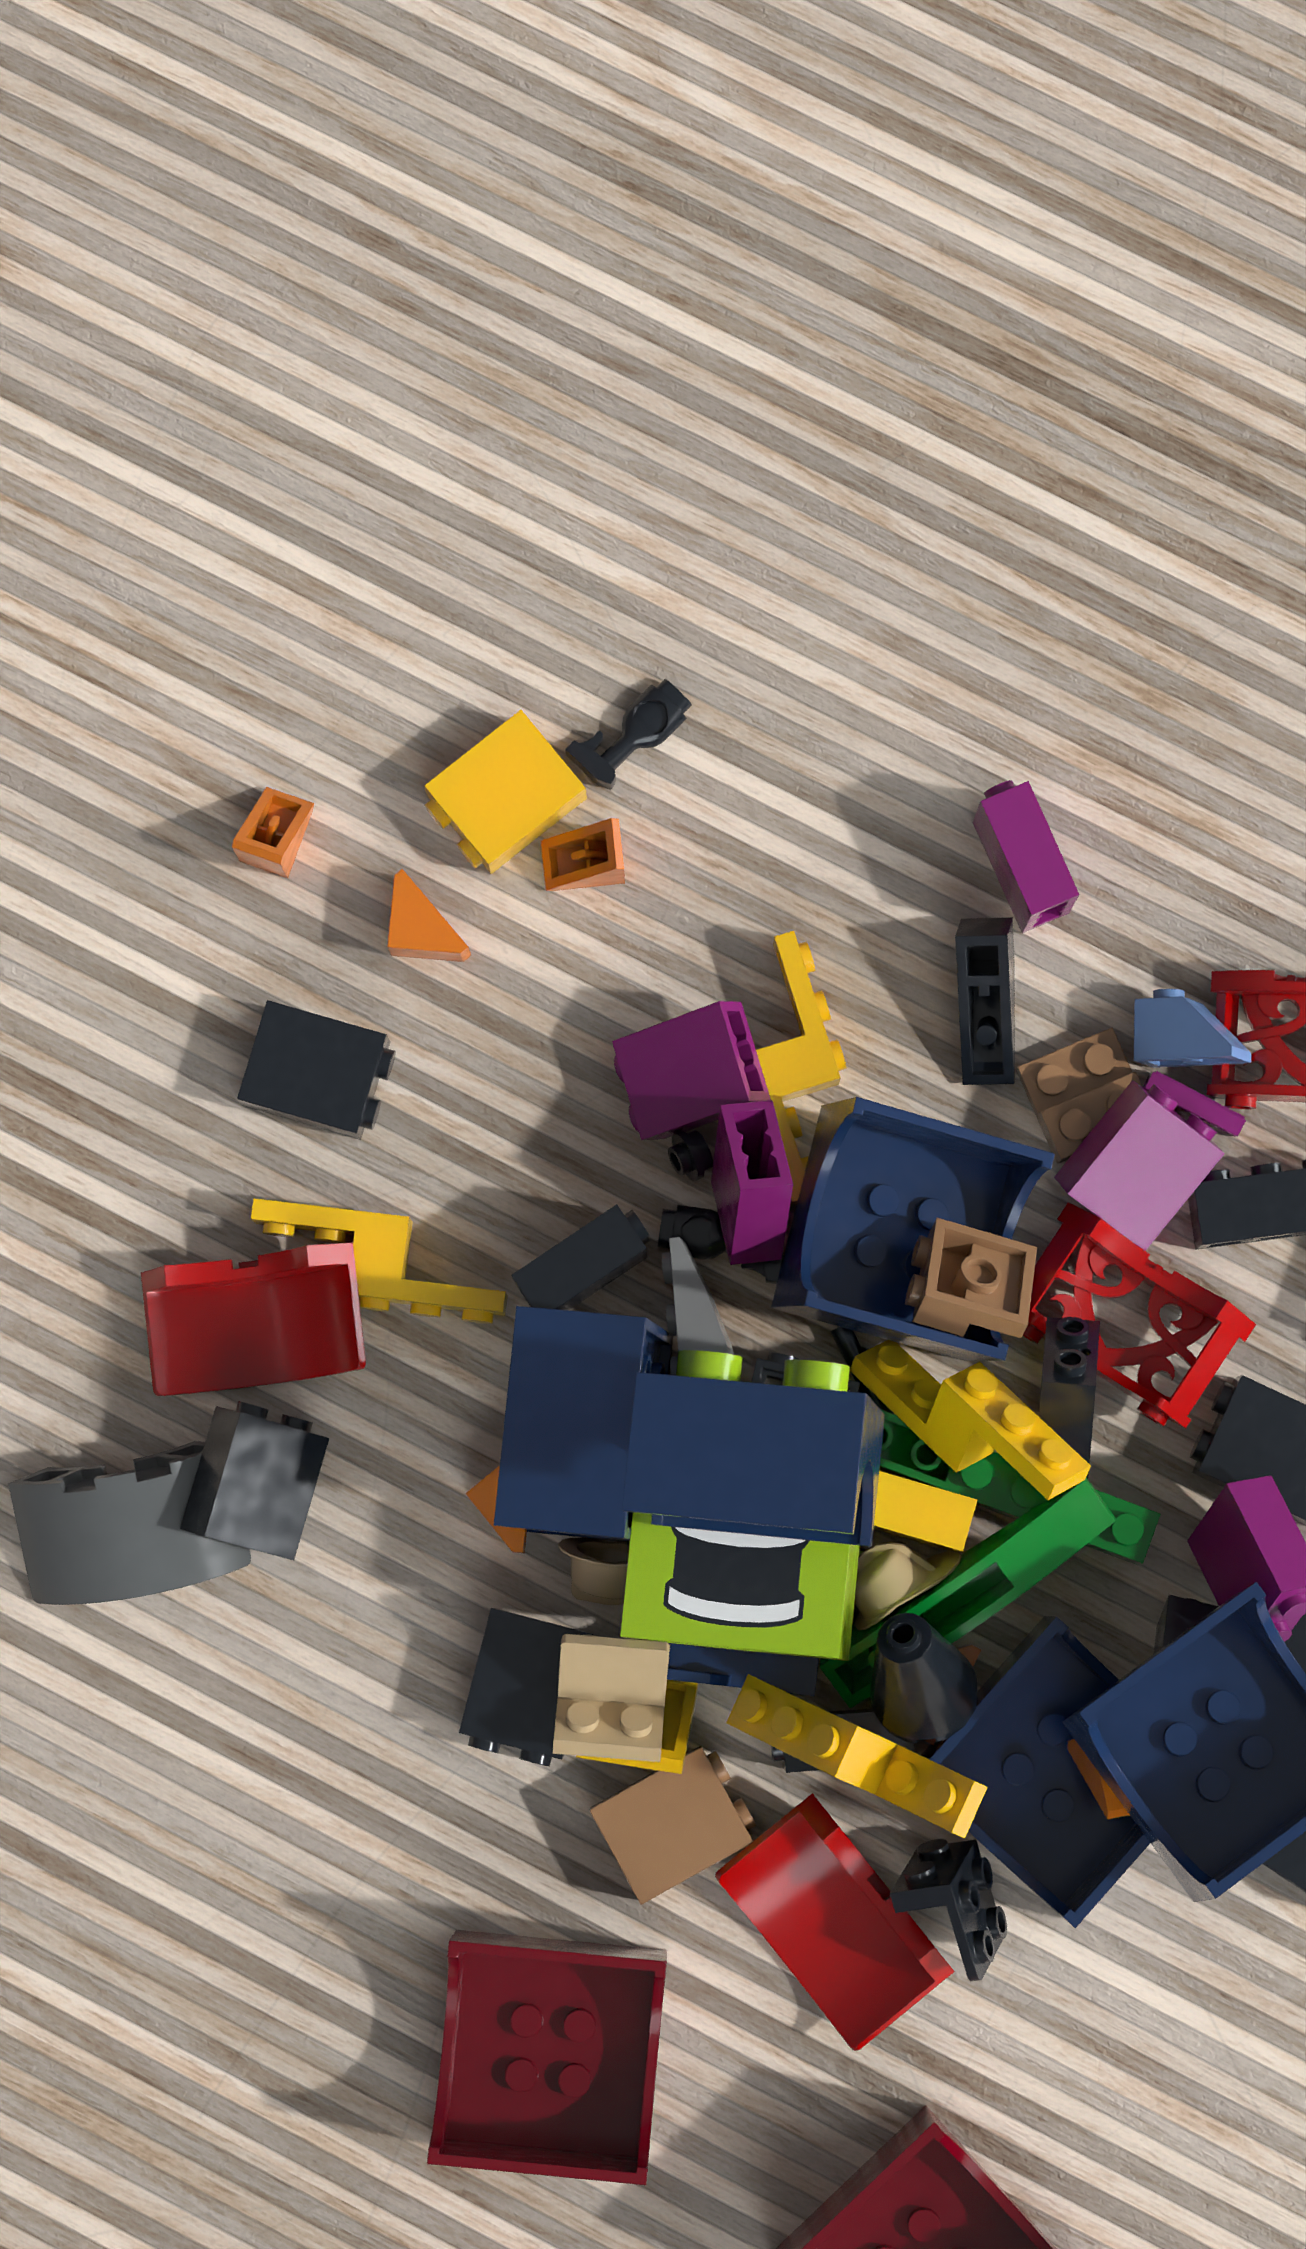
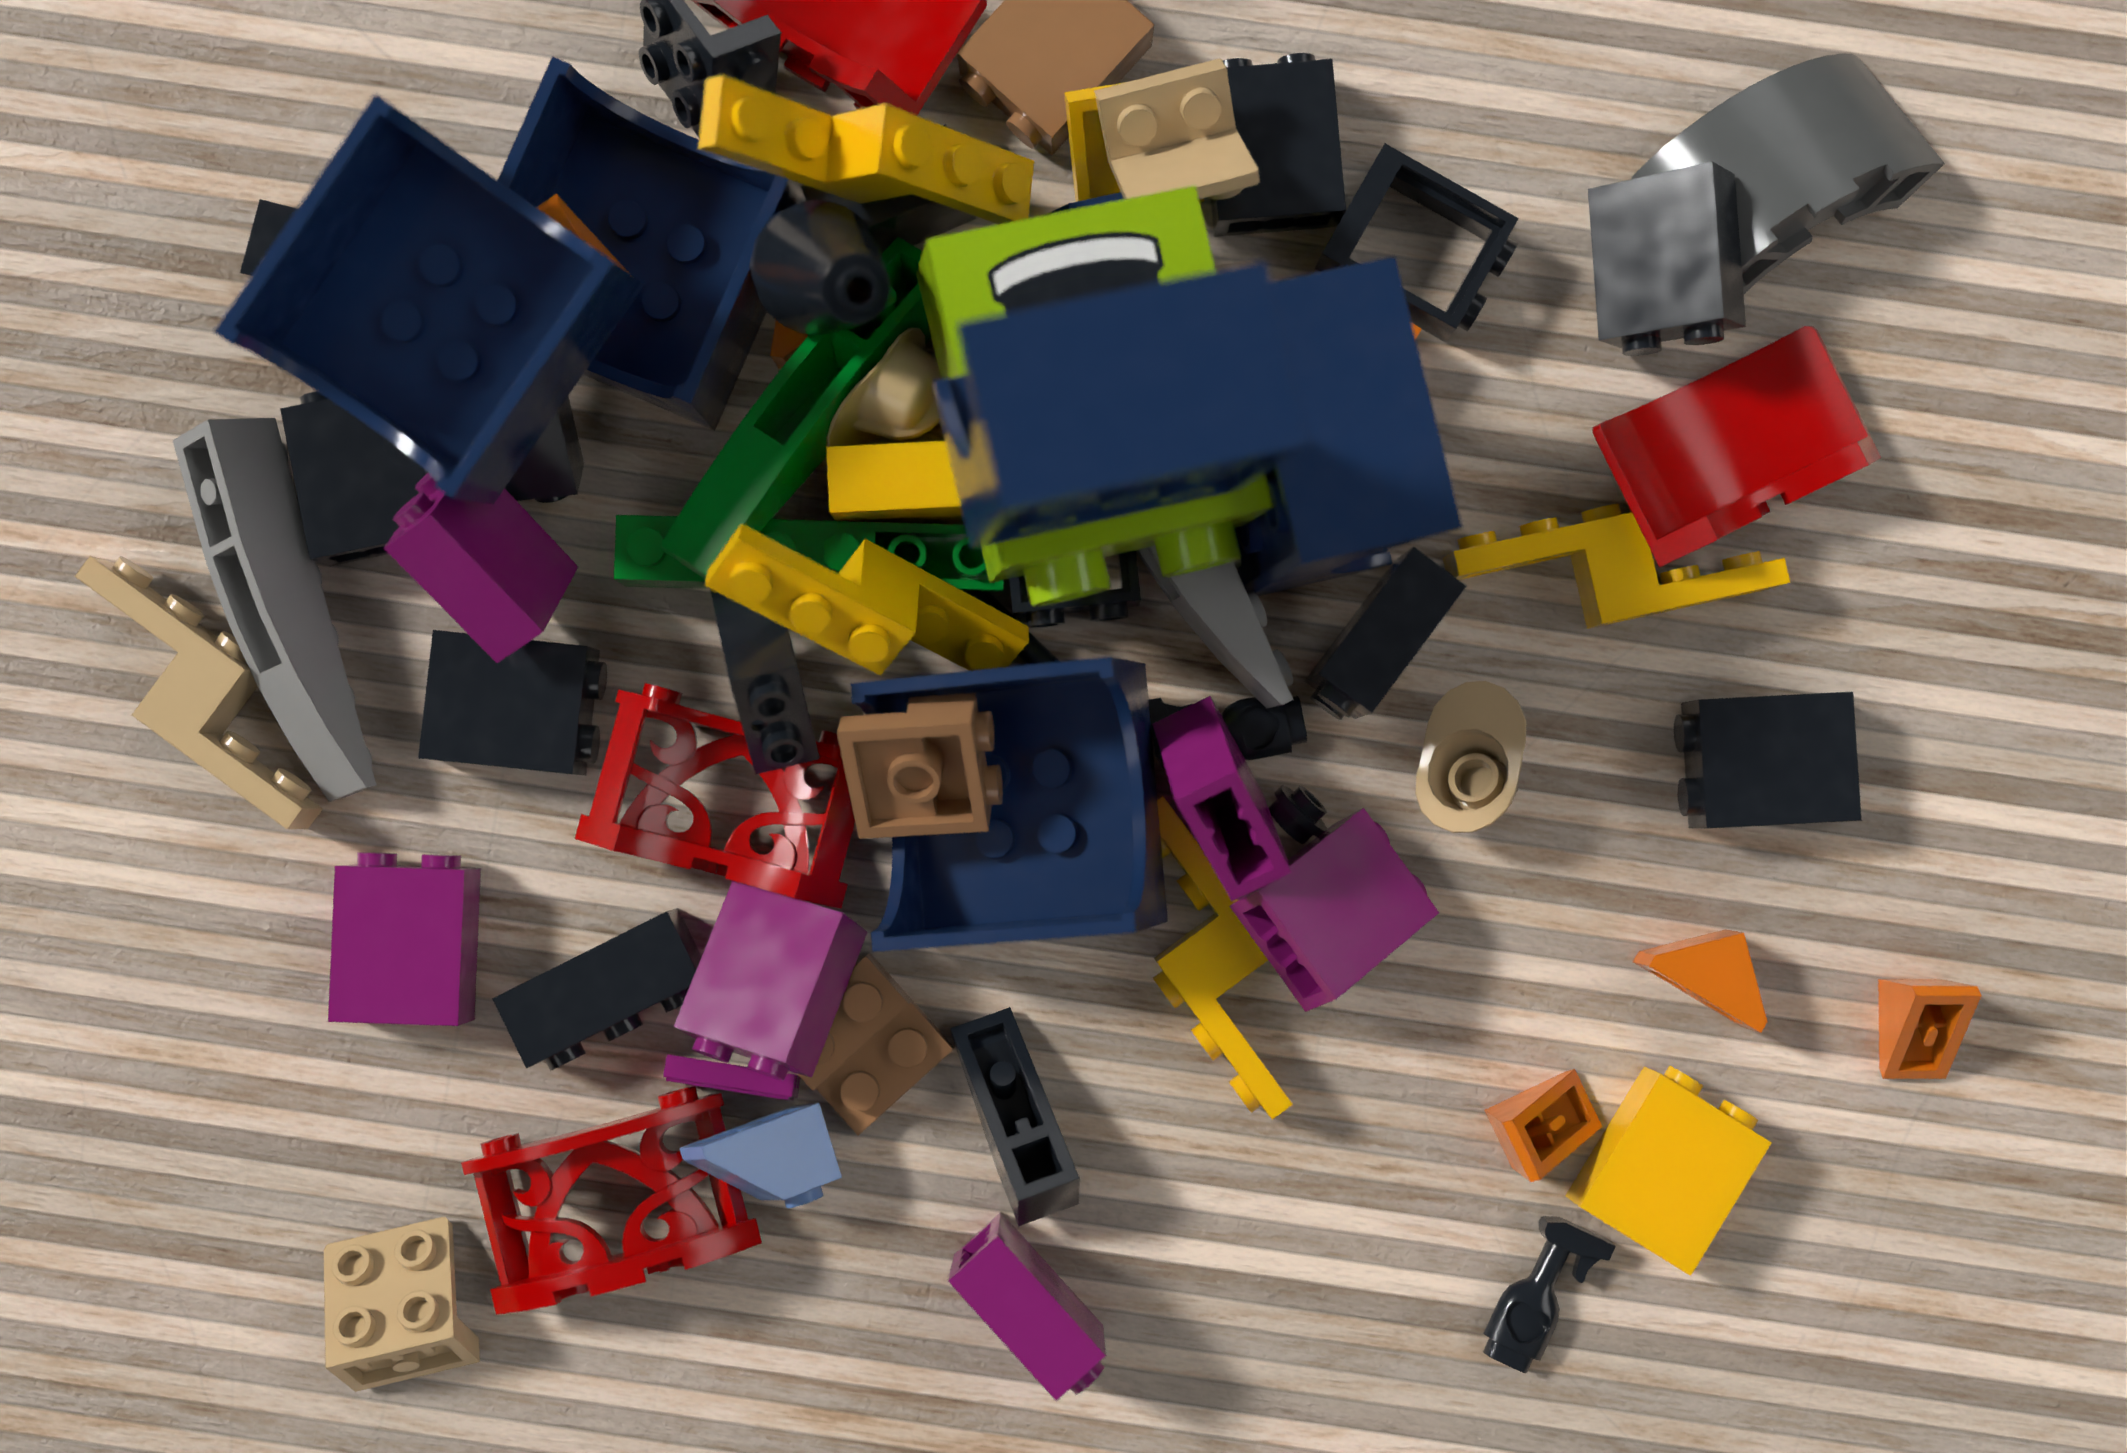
camera: 155 degrees right, 5 degrees up
(385, 1535) = (1449, 201): none -> black window
(545, 1149) = (1471, 757): none -> tan piece

